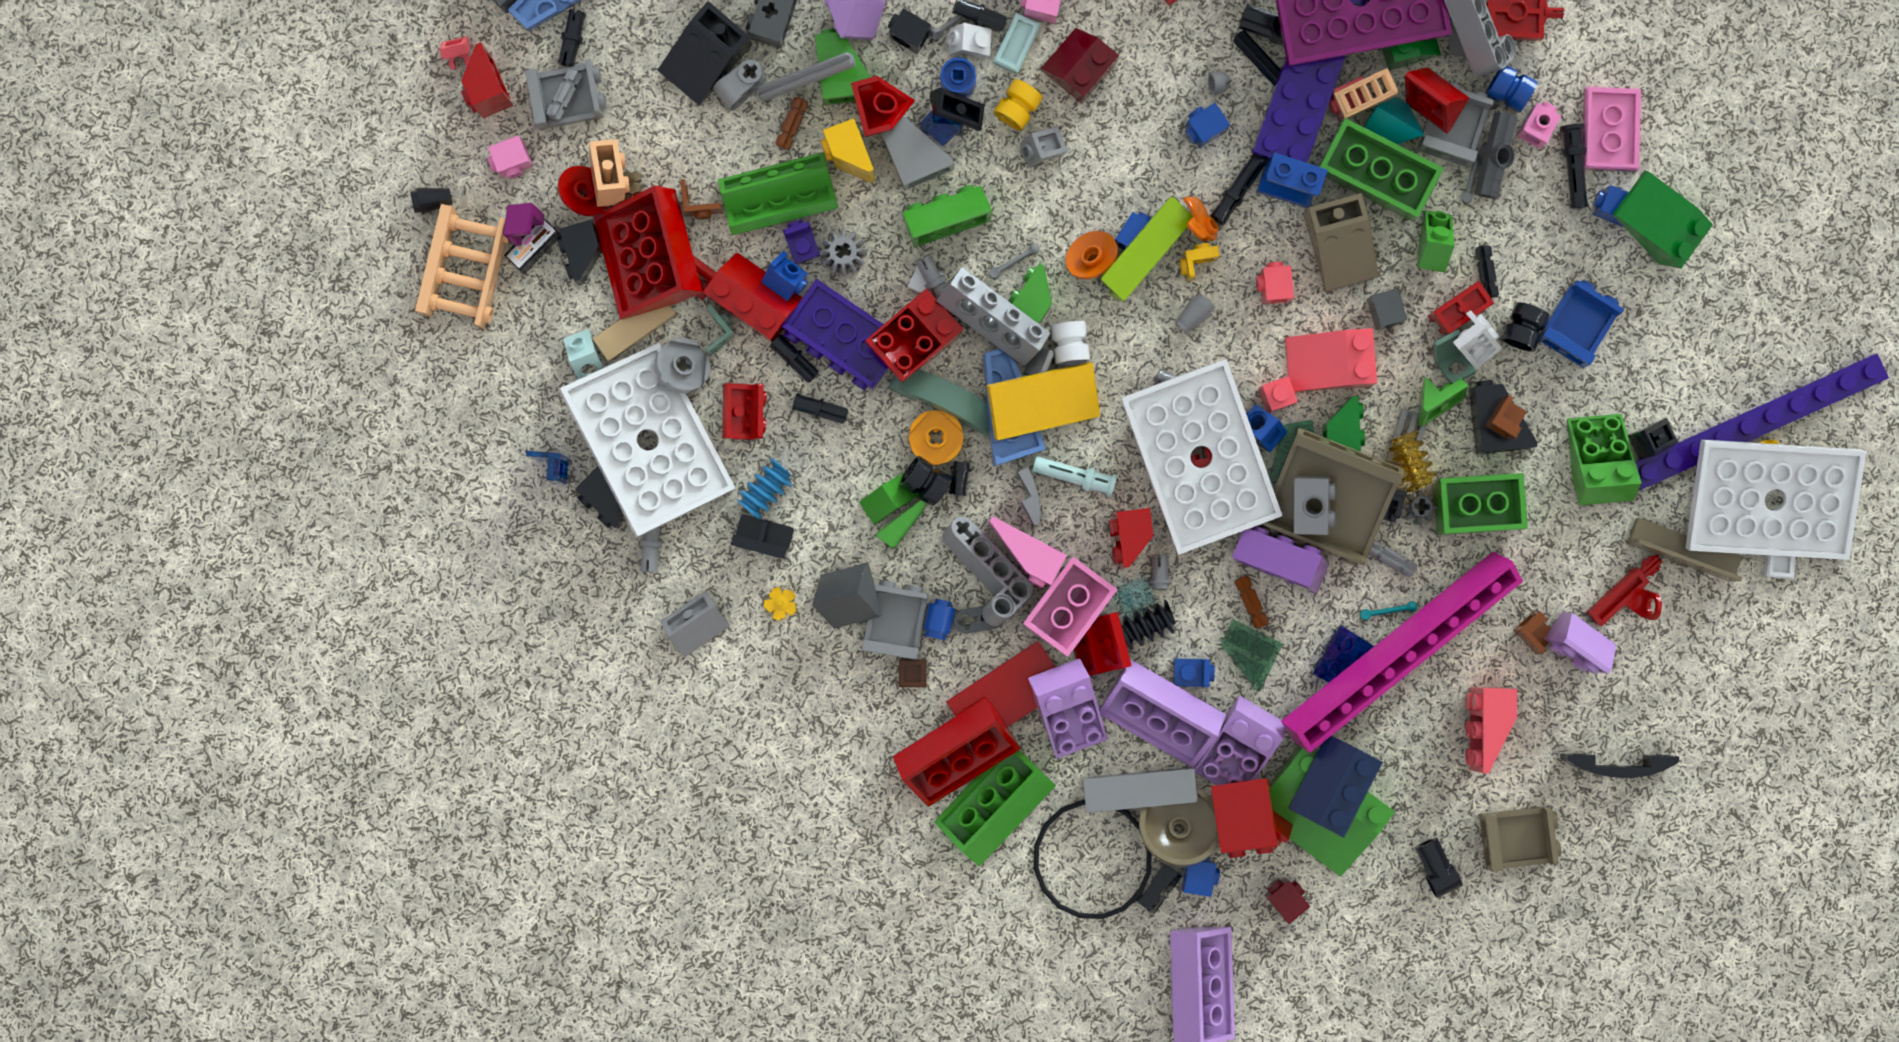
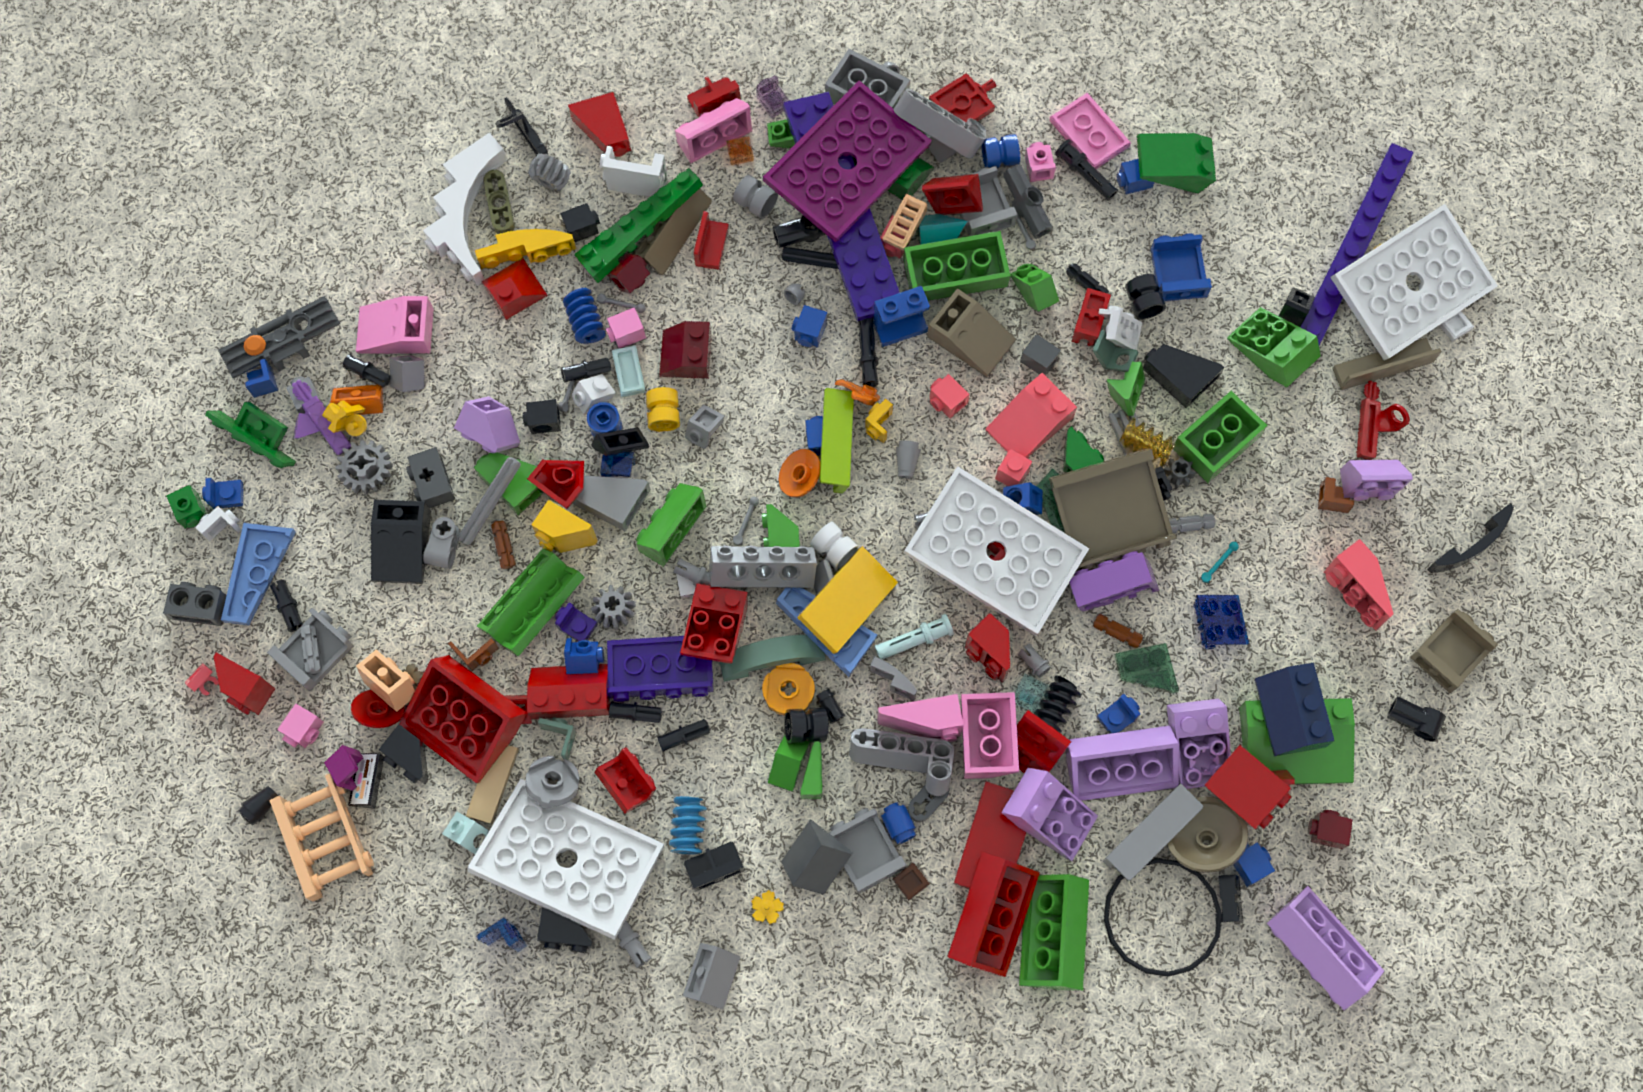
camera: 30 degrees left, 15 degrees down
(1309, 521) = (1090, 516): light grey brick -> none
(1401, 651) = (1255, 582): dark pink brick -> none
(1506, 418) = (1187, 363): dark orange panel -> none

